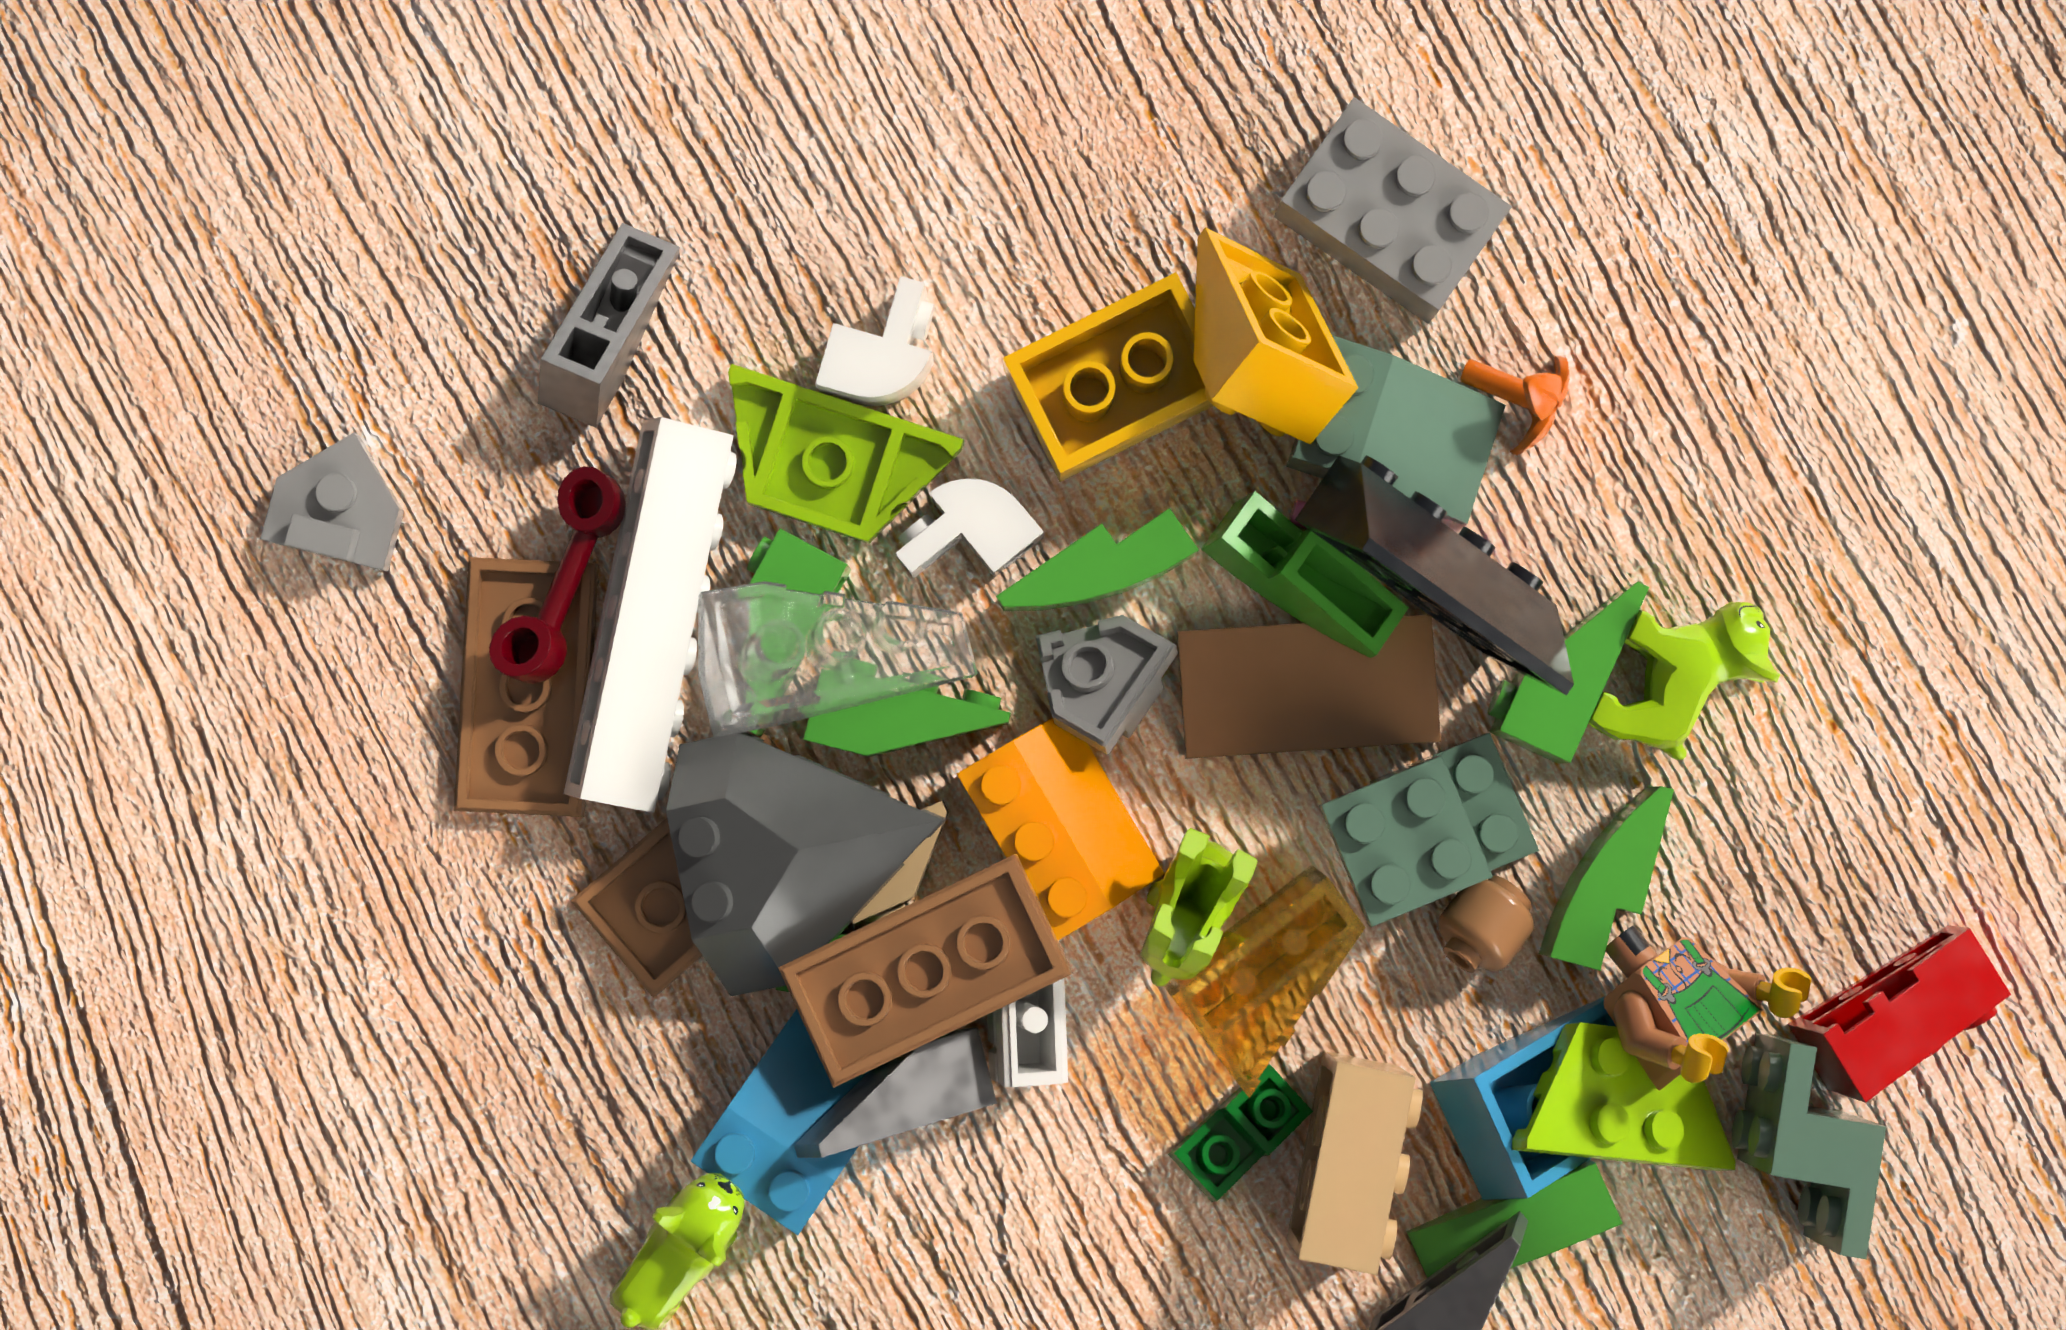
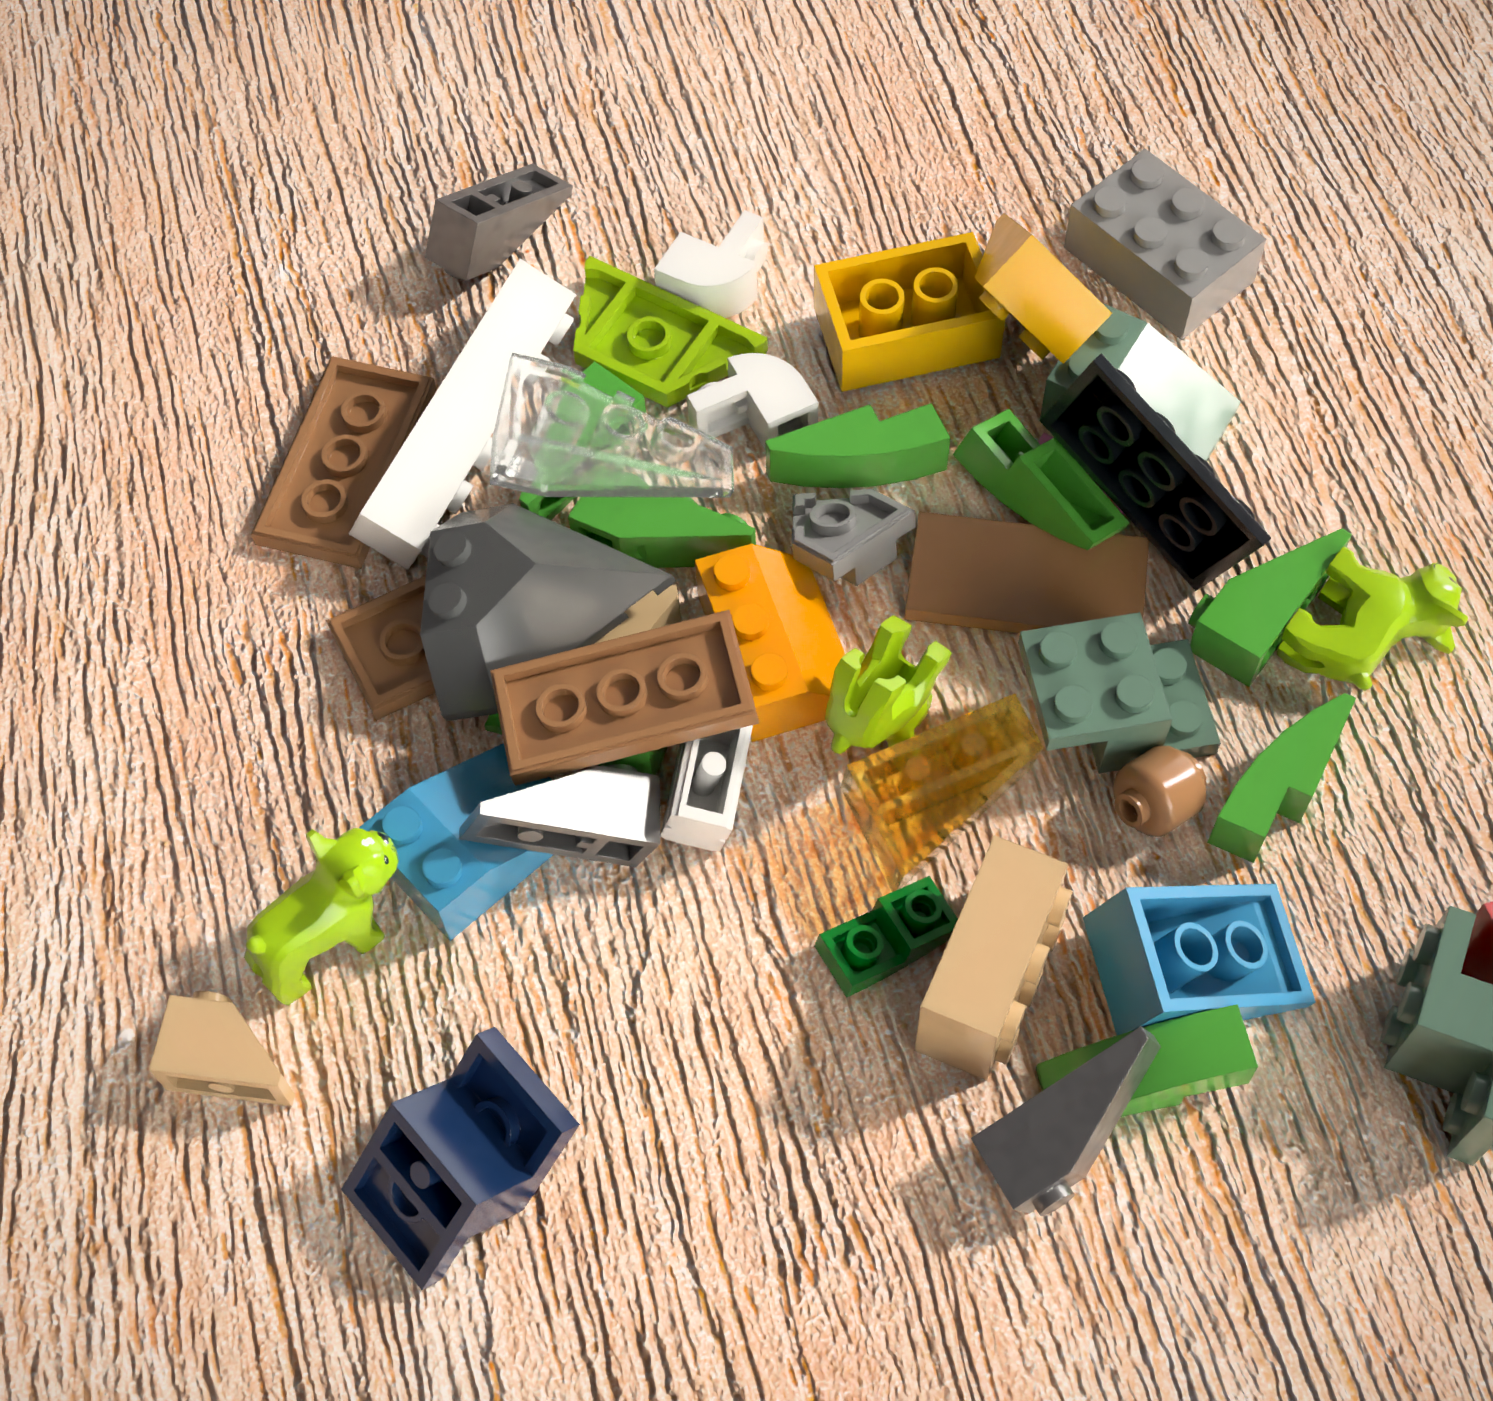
camera: 15 degrees right, 25 degrees down
(336, 507) = (236, 308): light grey plate -> none
(535, 647) = (360, 411): dark red piece -> none
(1537, 393) = (1274, 390): orange plant -> none
(1607, 1108) = (1279, 969): lime wing -> none
(1686, 1004) = (1346, 891): torso -> none

